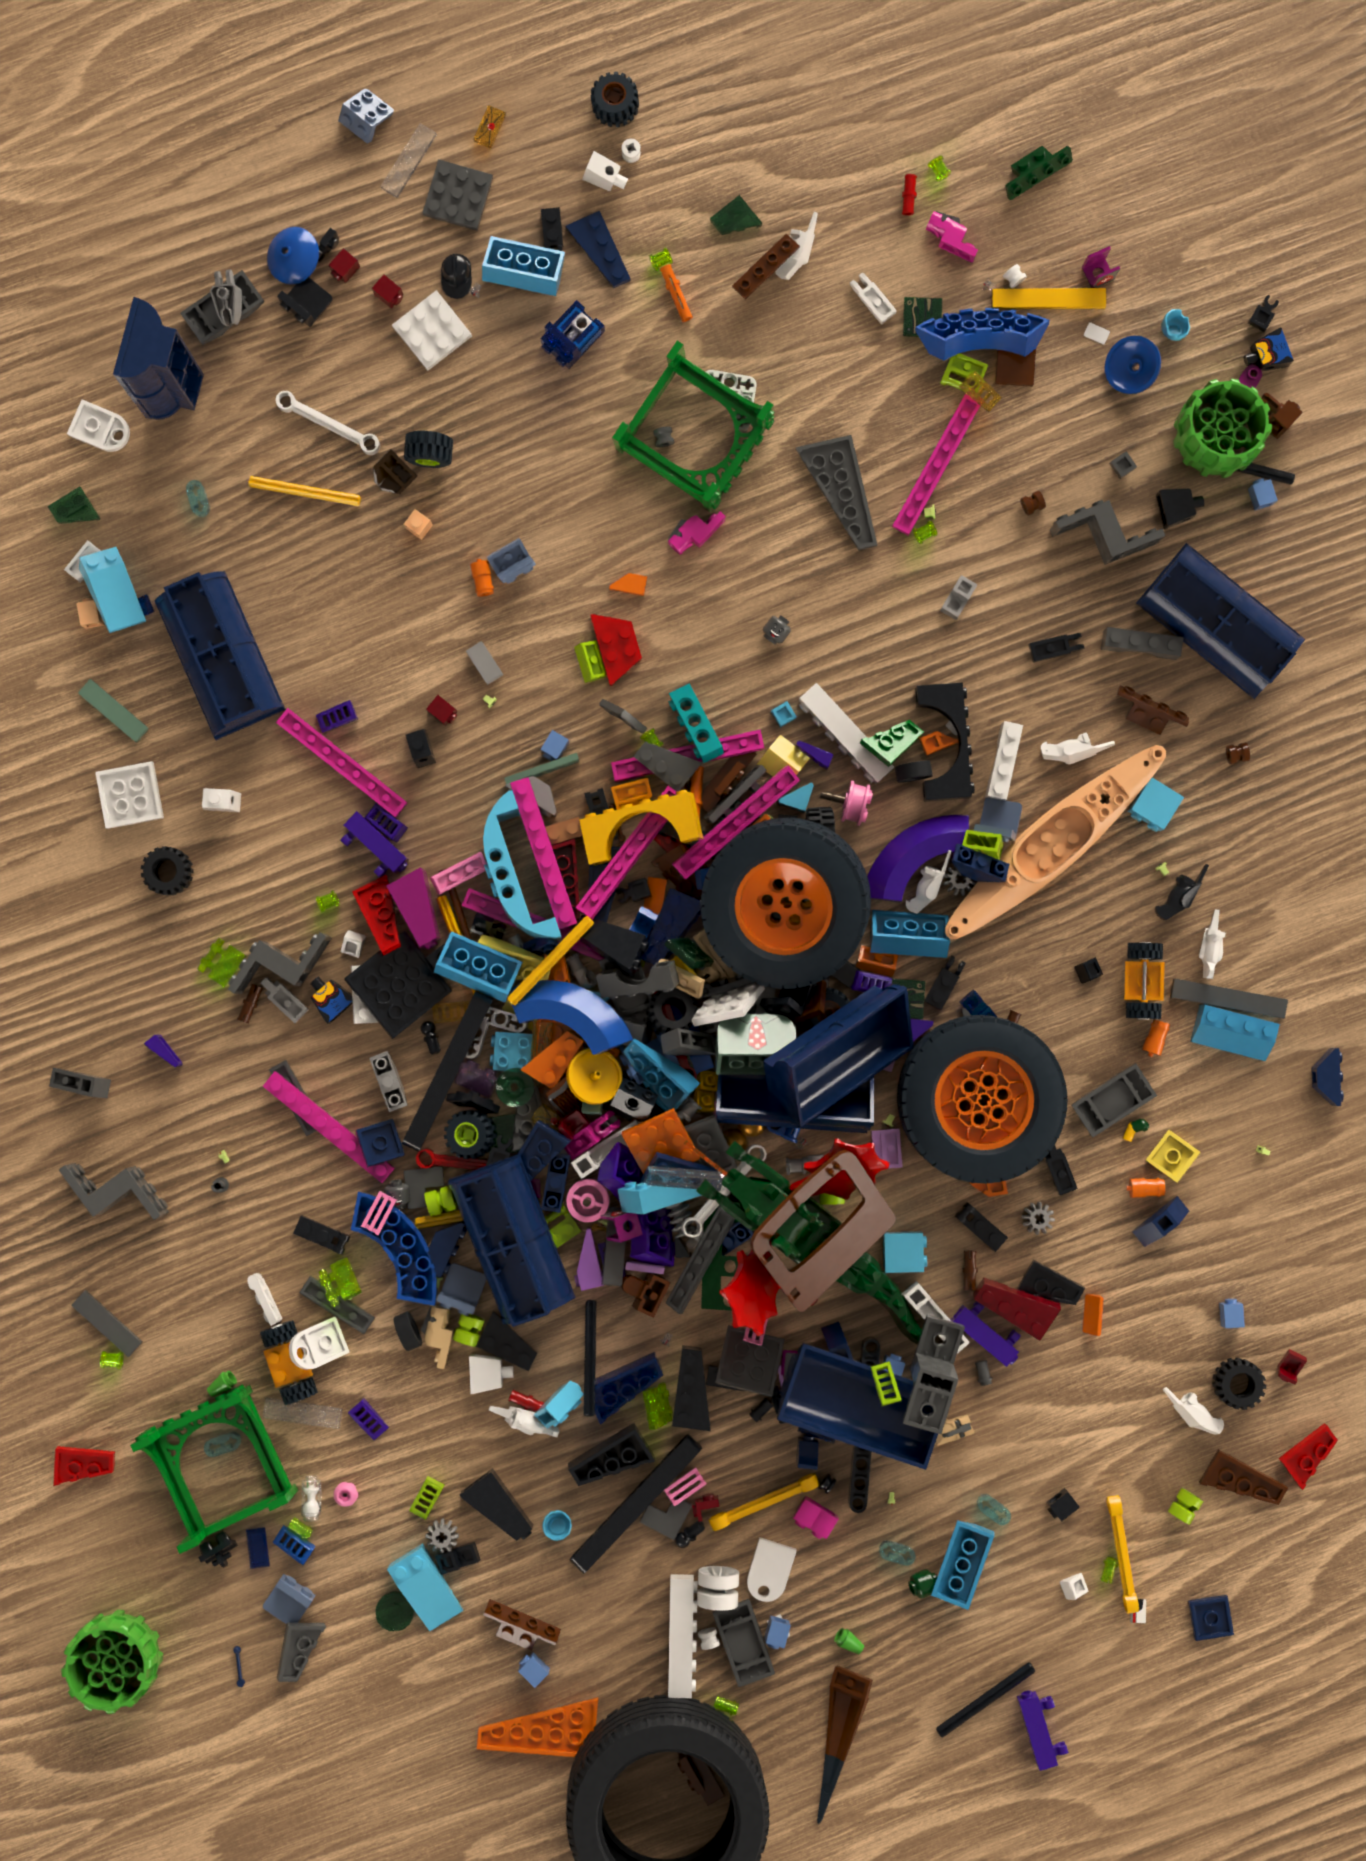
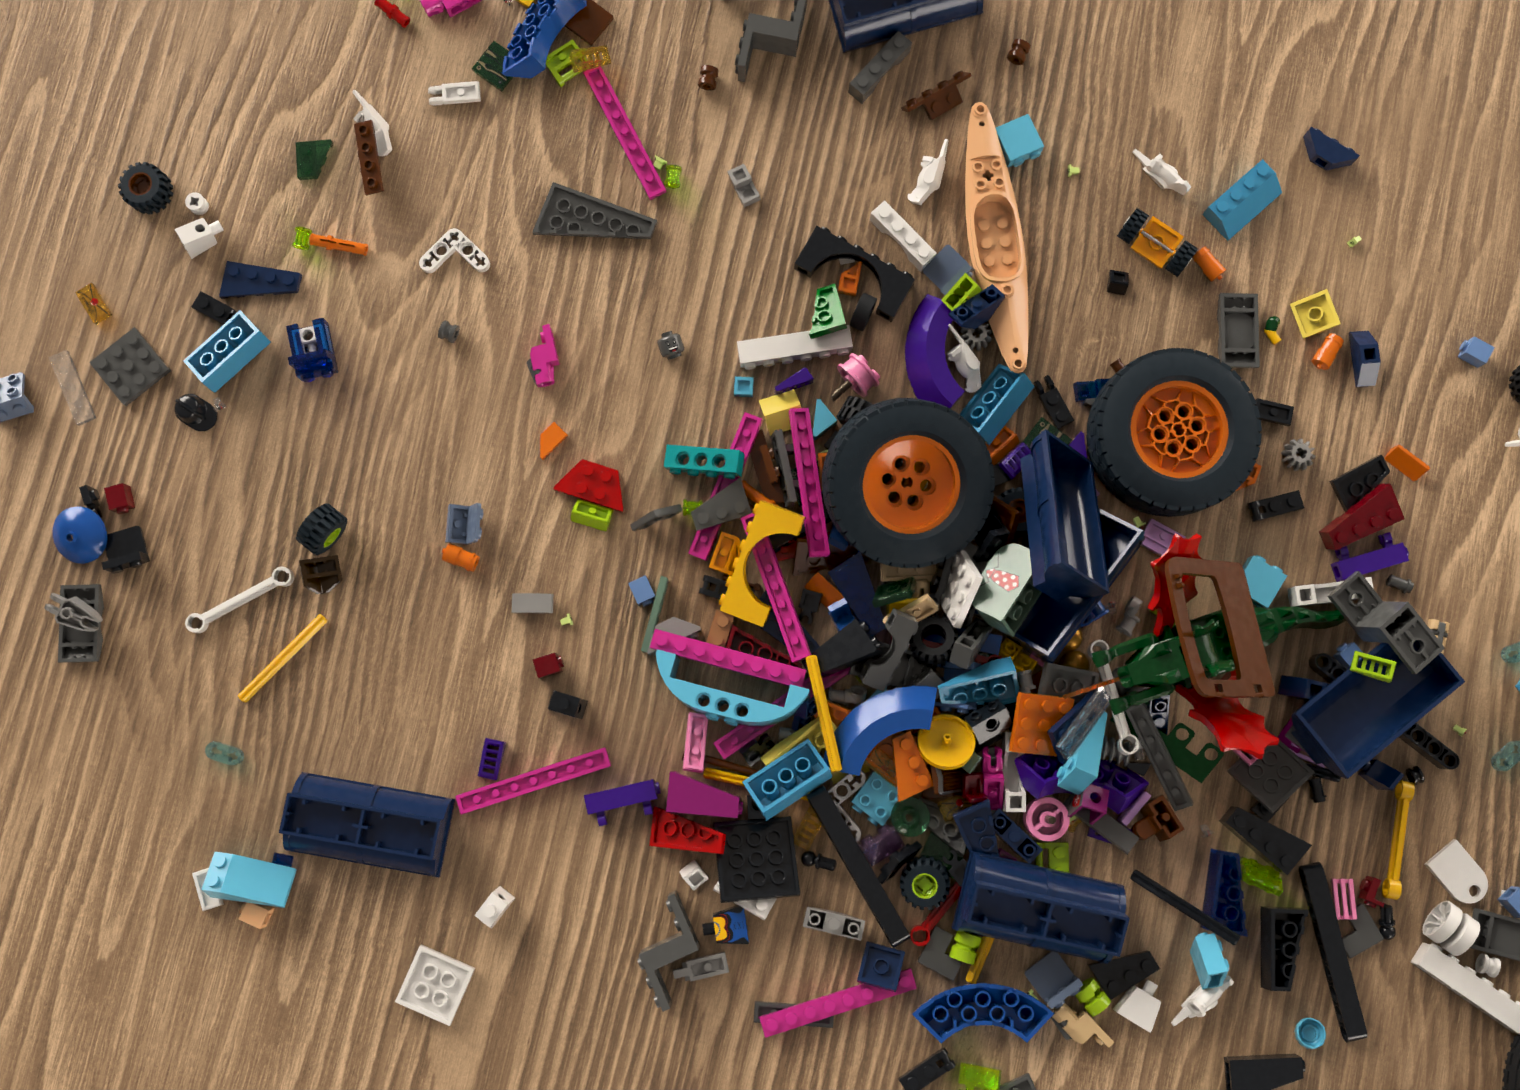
camera: 55 degrees left, 5 degrees down
(74, 508) = (156, 866): clear green wing -> none
(98, 426) = (103, 798): white tile -> none
(113, 710) = (353, 950): sand green tile -> none
(151, 867) = (506, 1000): black tyre -> none
(156, 365) = (83, 707): dark blue piece -> none
(227, 964) = (639, 998): clear neon green plate -> none
(250, 1003) = (685, 1000): reddish brown pin -> none
(327, 901) = (643, 872): clear neon green bush -> none
(371, 1227) = (951, 1024): bright pink tile -> none
(388, 291) = (167, 476): dark red brick -> none
(397, 828) = (625, 773): dark purple slope -> none
(399, 1191) = (935, 981): dark grey head -> none
(407, 1331) = (1060, 1052): black tyre -> none
(418, 524) = (378, 580): light nougat brick -> none
(432, 330) = (225, 462): white plate -> none
(444, 1246) = (1006, 969): dark blue slope -> none
(525, 1401) = (1185, 988): red pin -> none
(589, 1270) = (1103, 856): medium lavender slope -> none
(759, 416) = (483, 244): green arch -> none
(815, 1517) = (1438, 804): dark pink brick -> none
(970, 1270) = (1306, 538): reddish brown pin -> none
(1054, 647) = (836, 137): black hinge -> none
(1181, 895) = (1105, 168): black animal -> none
(1229, 998) = (1212, 187): dark grey tile -> none

